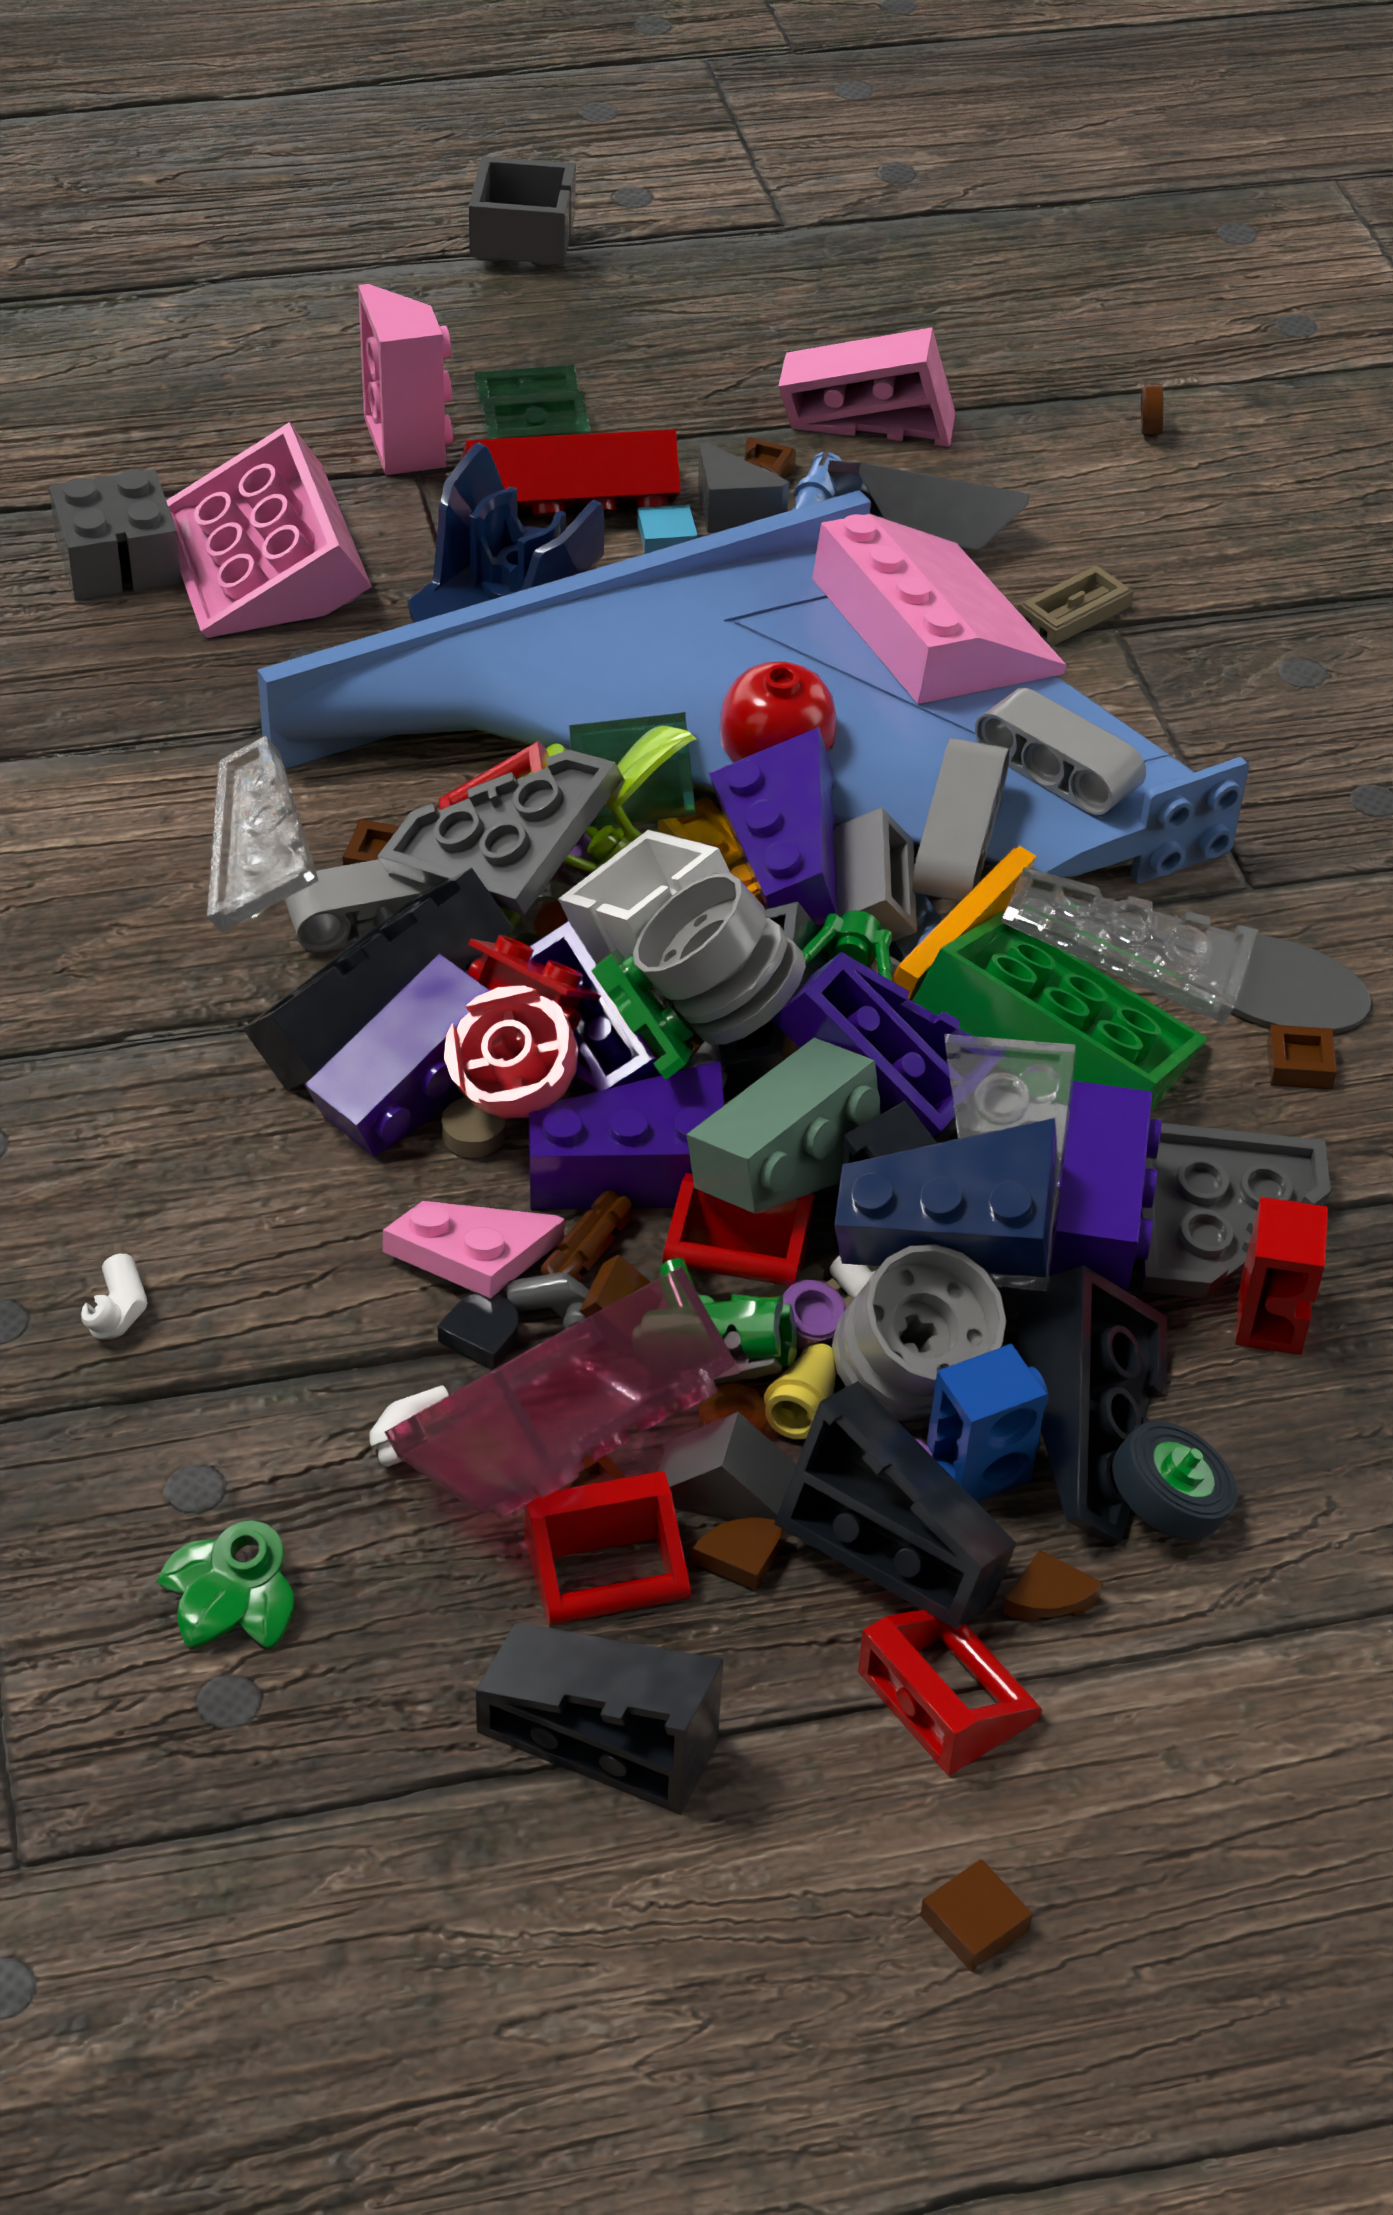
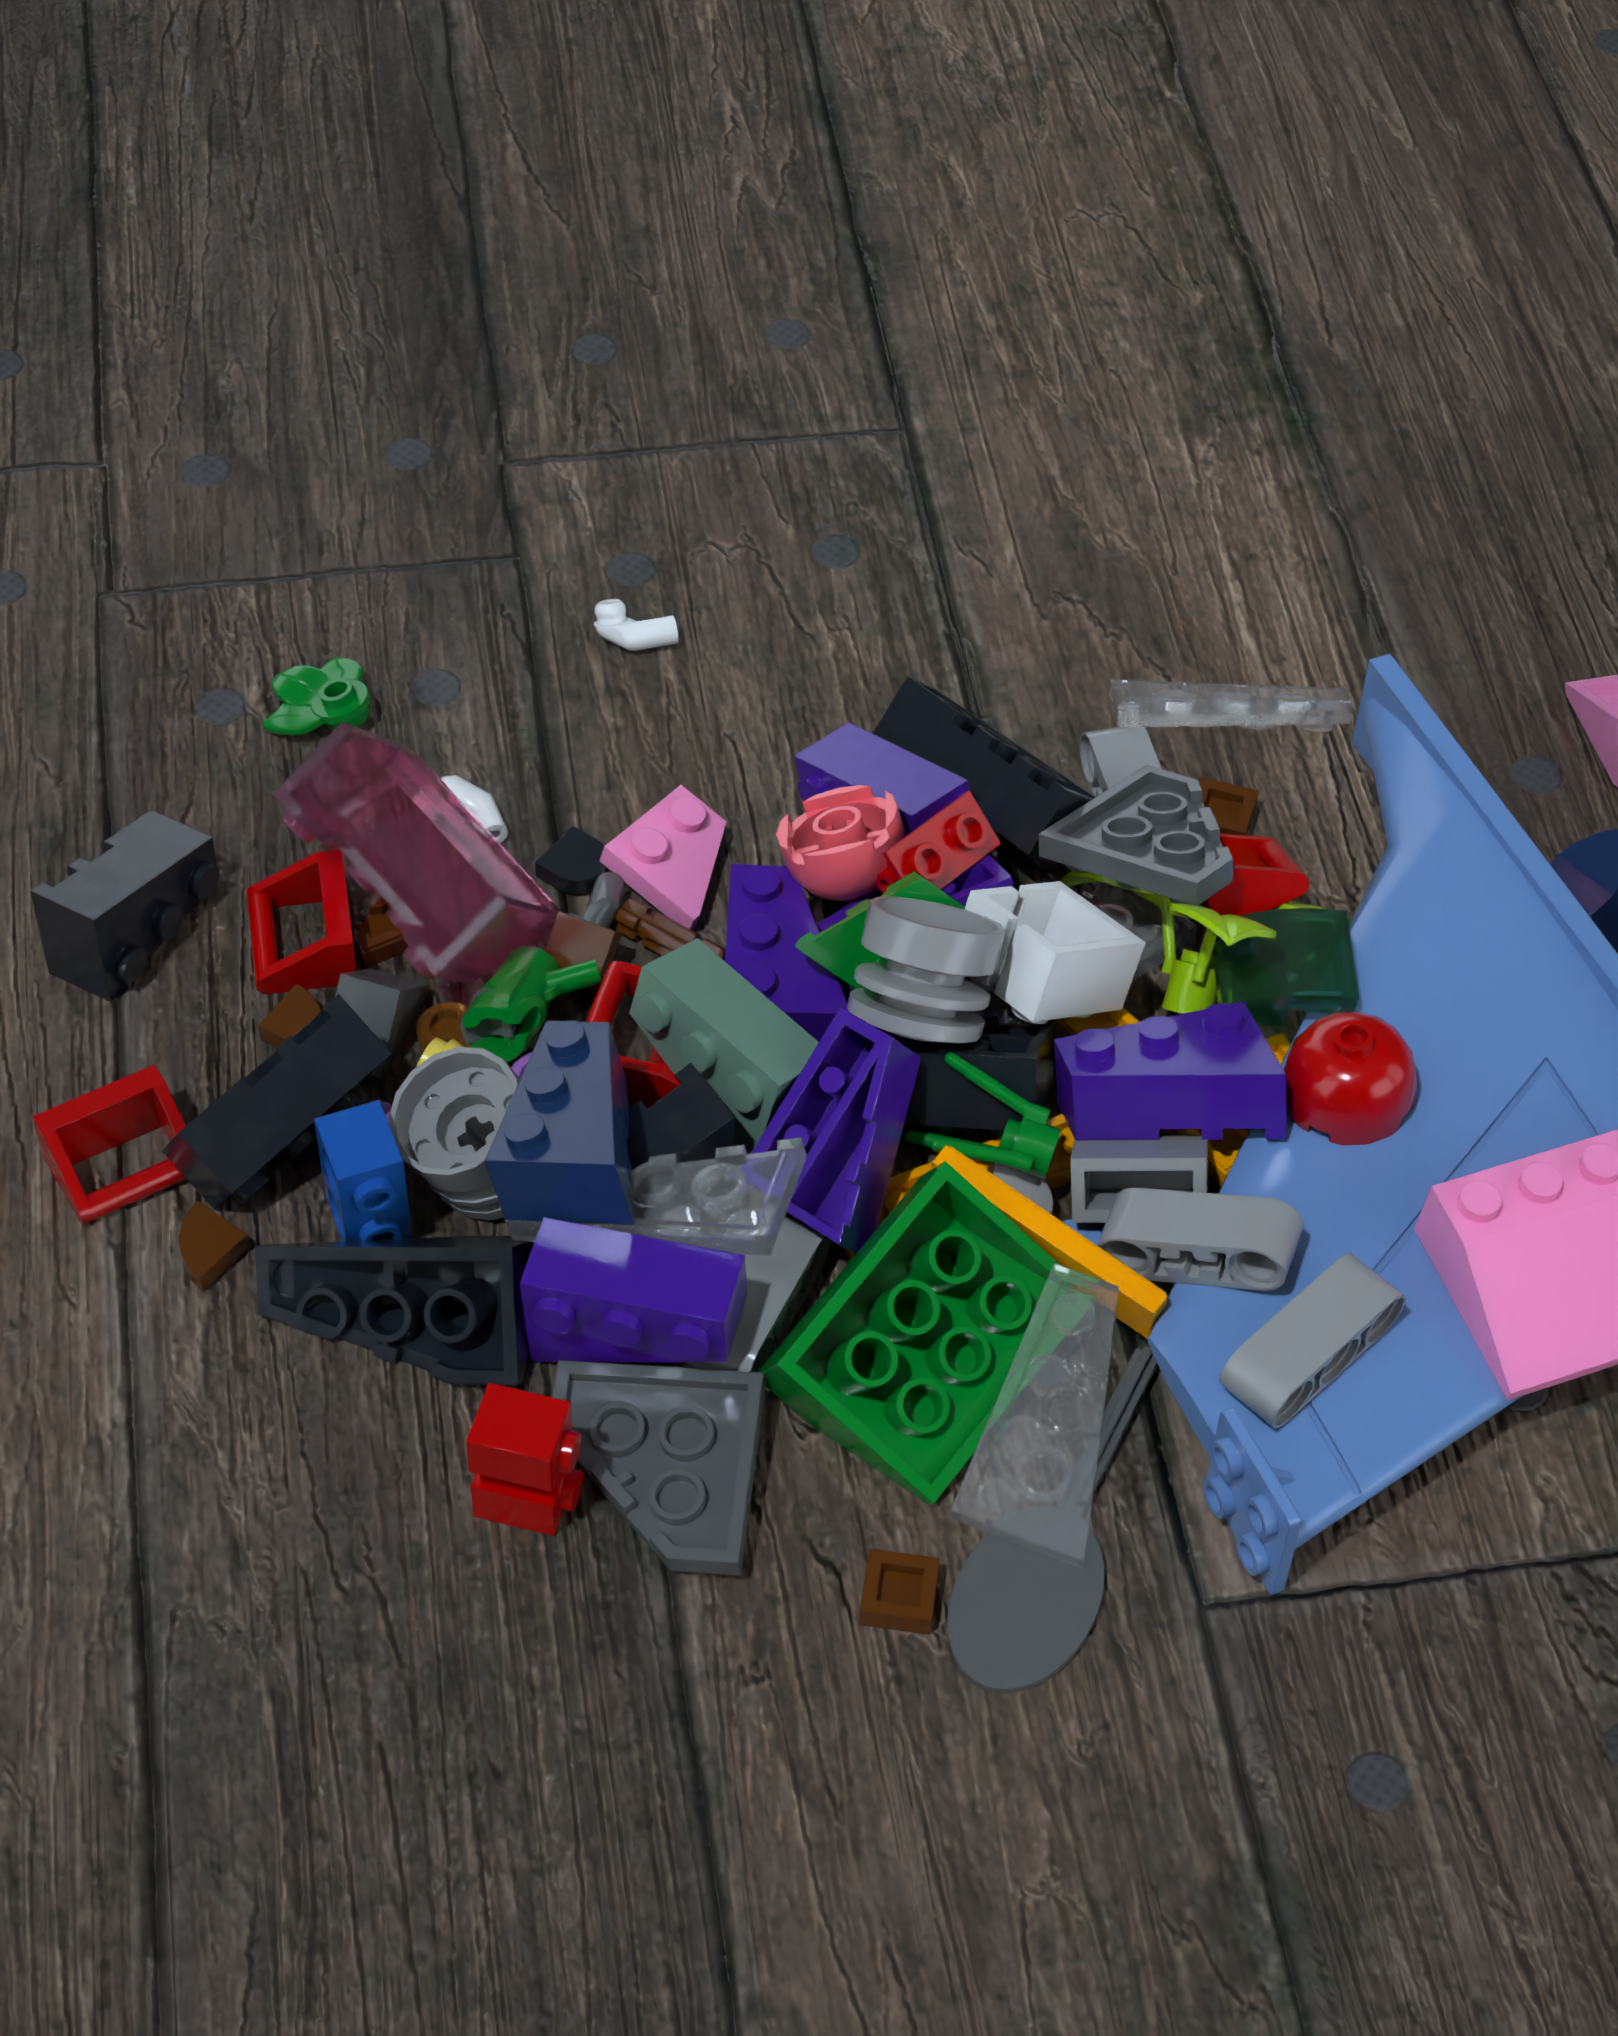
camera: 95 degrees right, 5 degrees up
(1174, 1480) = (297, 1344): black wheel -> none

